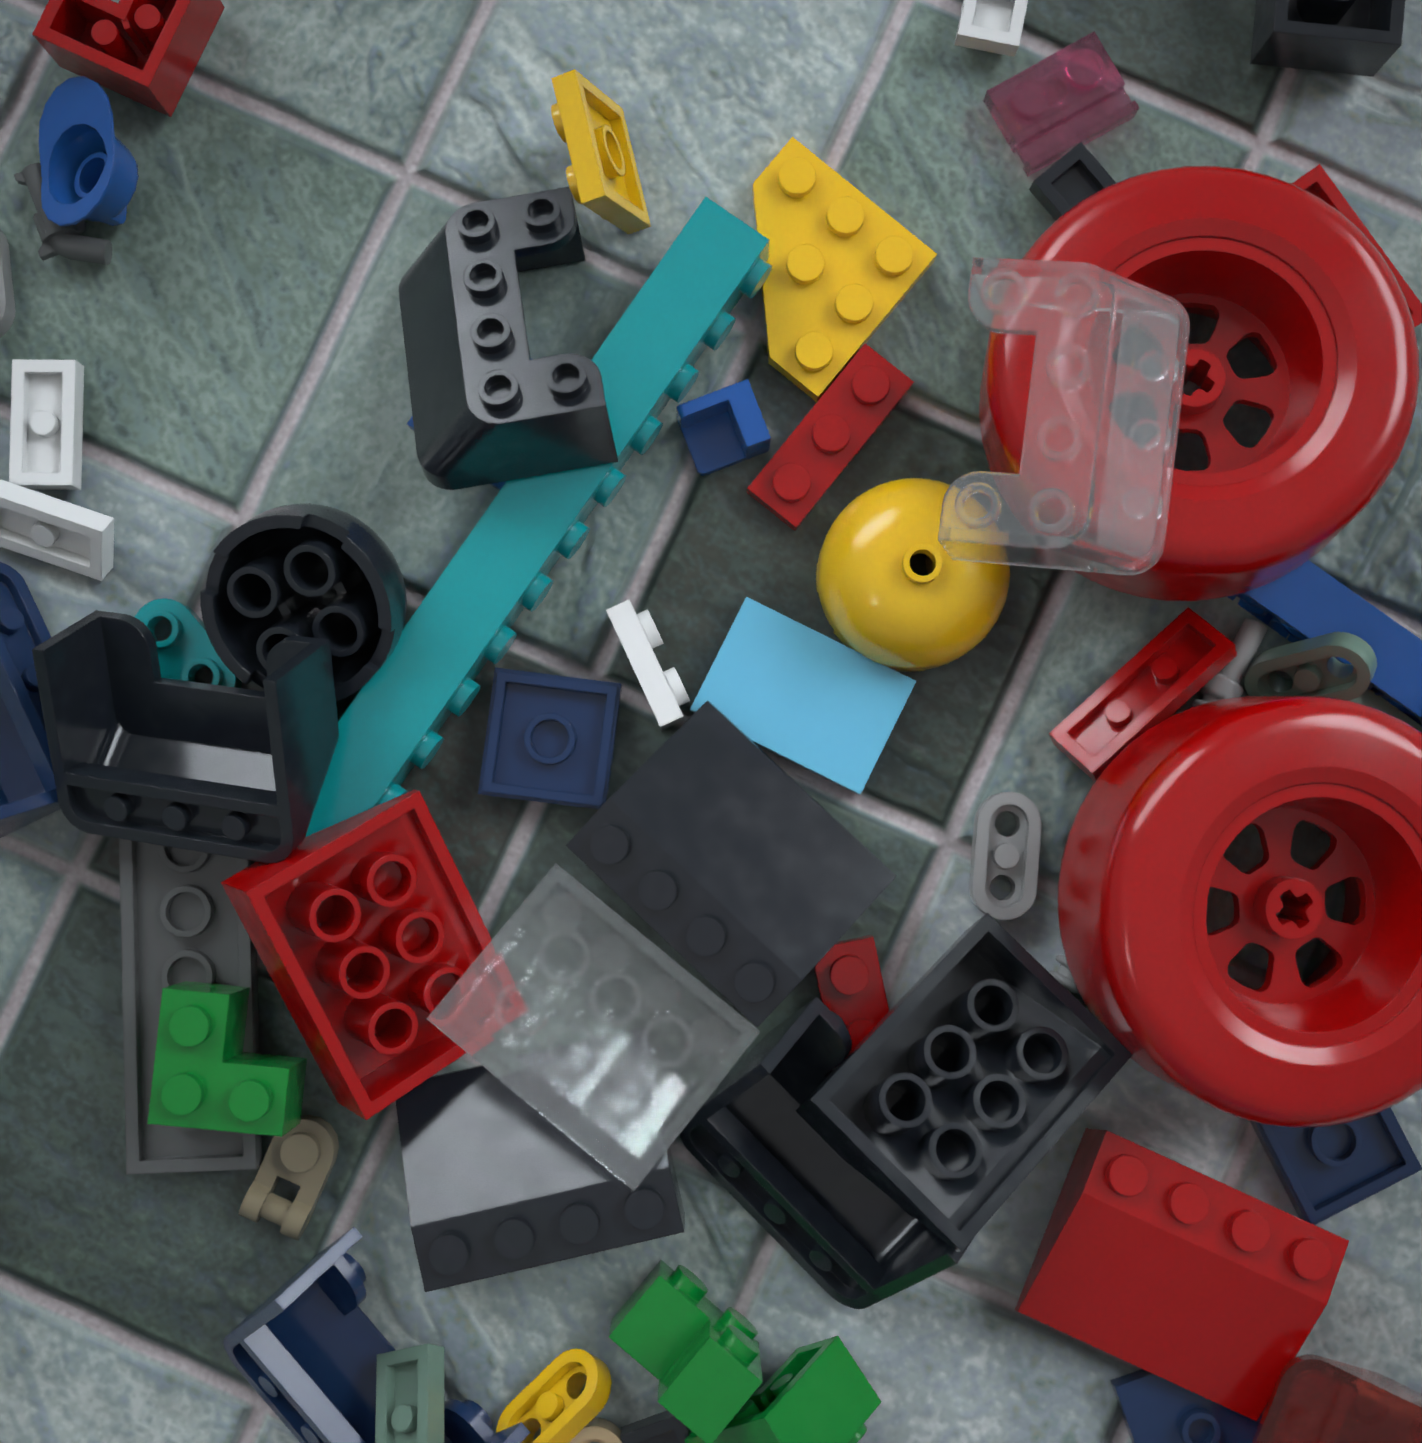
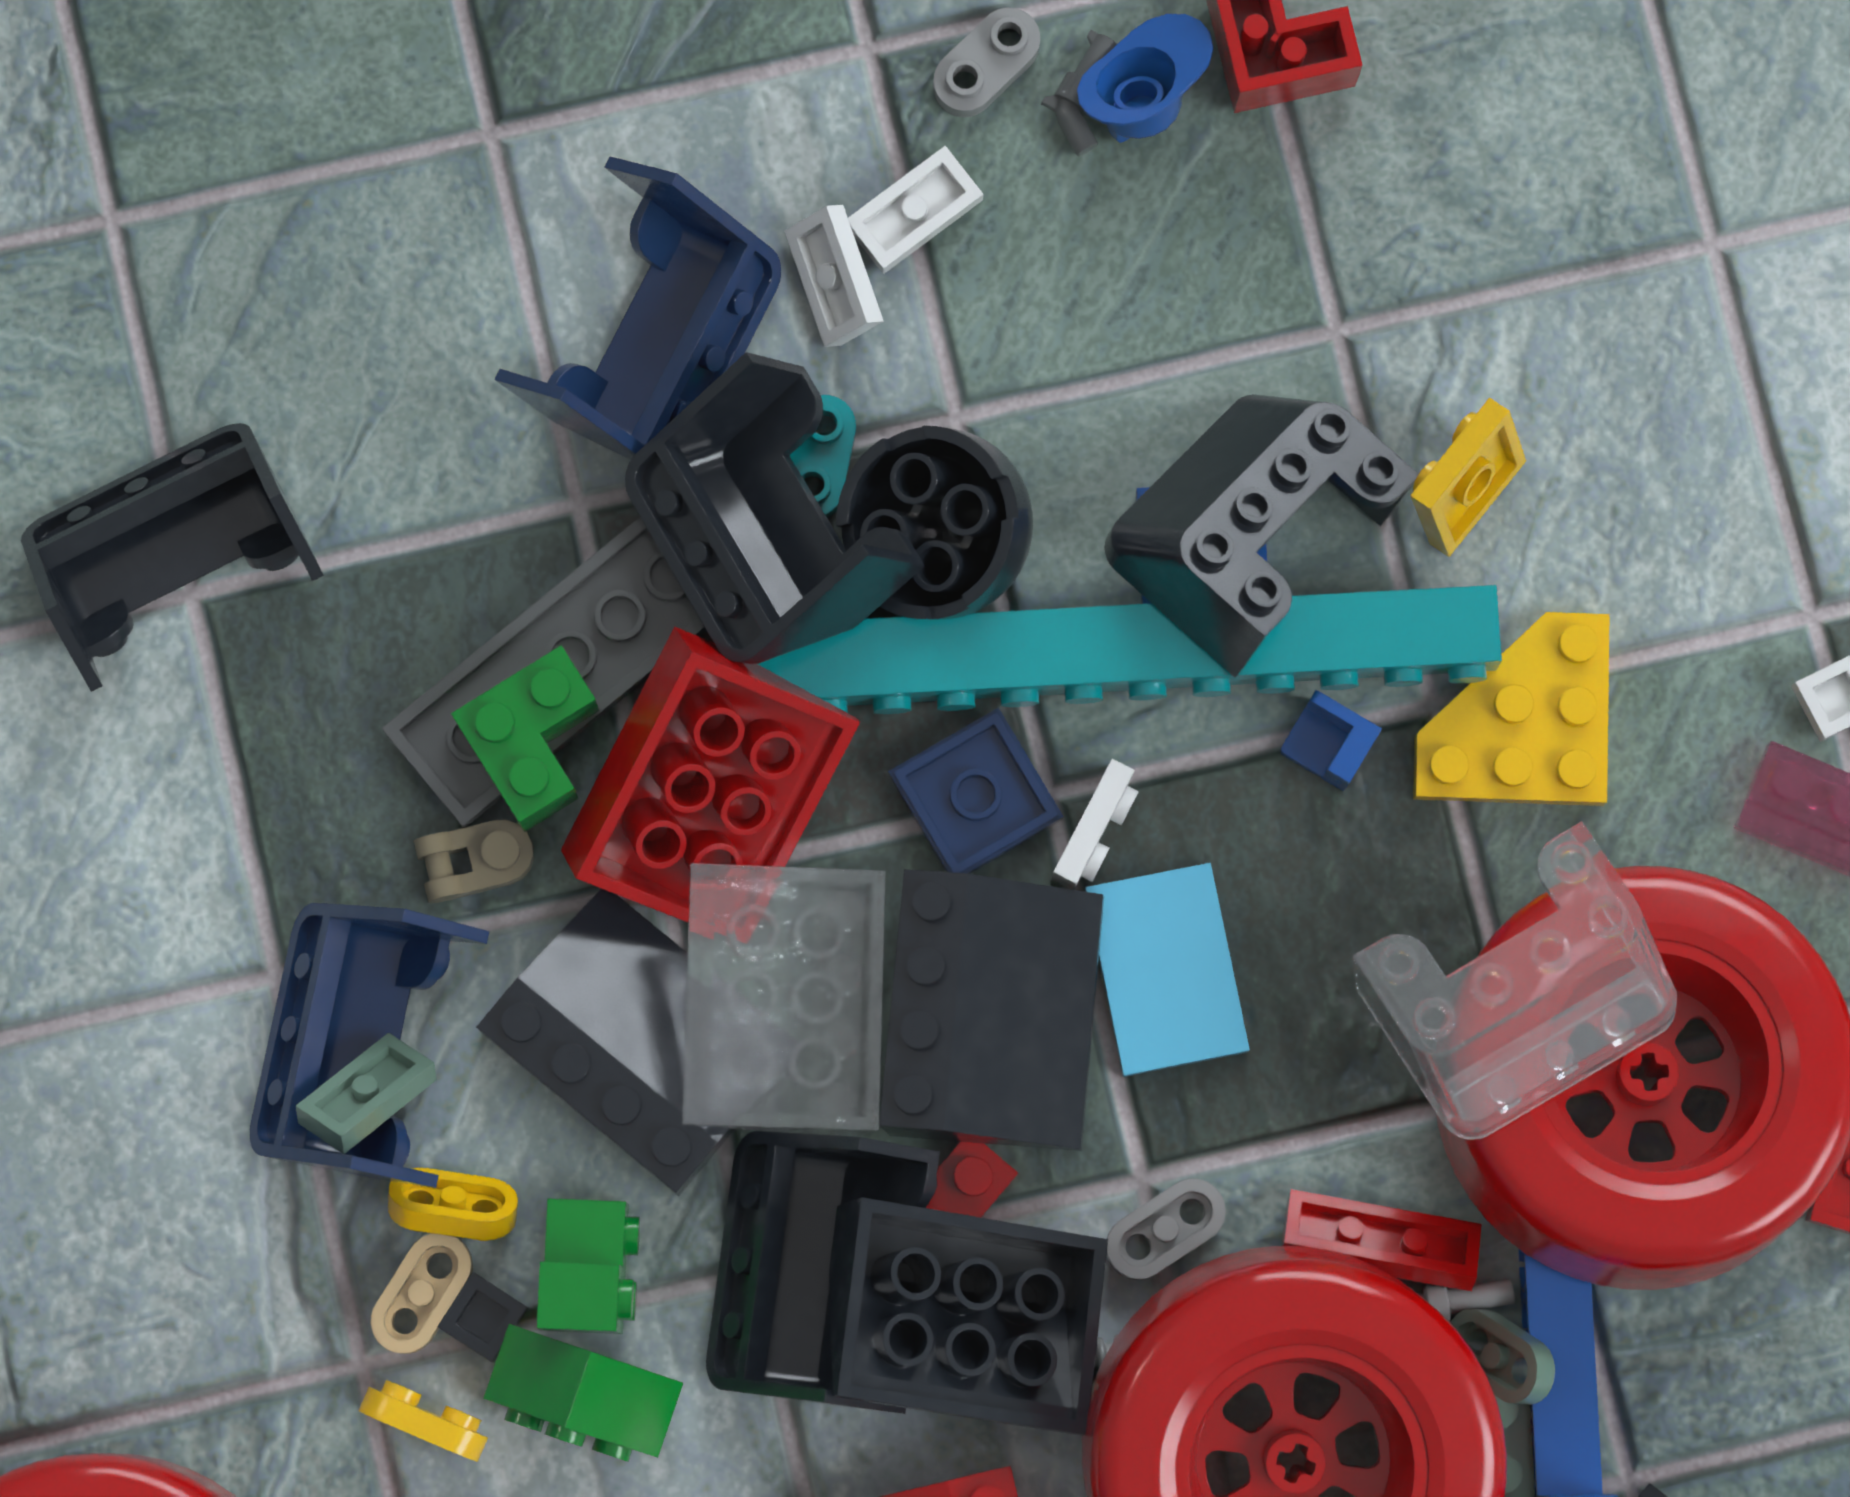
camera: 50 degrees right, 5 degrees down
(829, 437) = (1392, 831): red plate -> none
(885, 606) = (1286, 986): yellow cylinder -> none
(1070, 181) = (1751, 866): black plate -> none

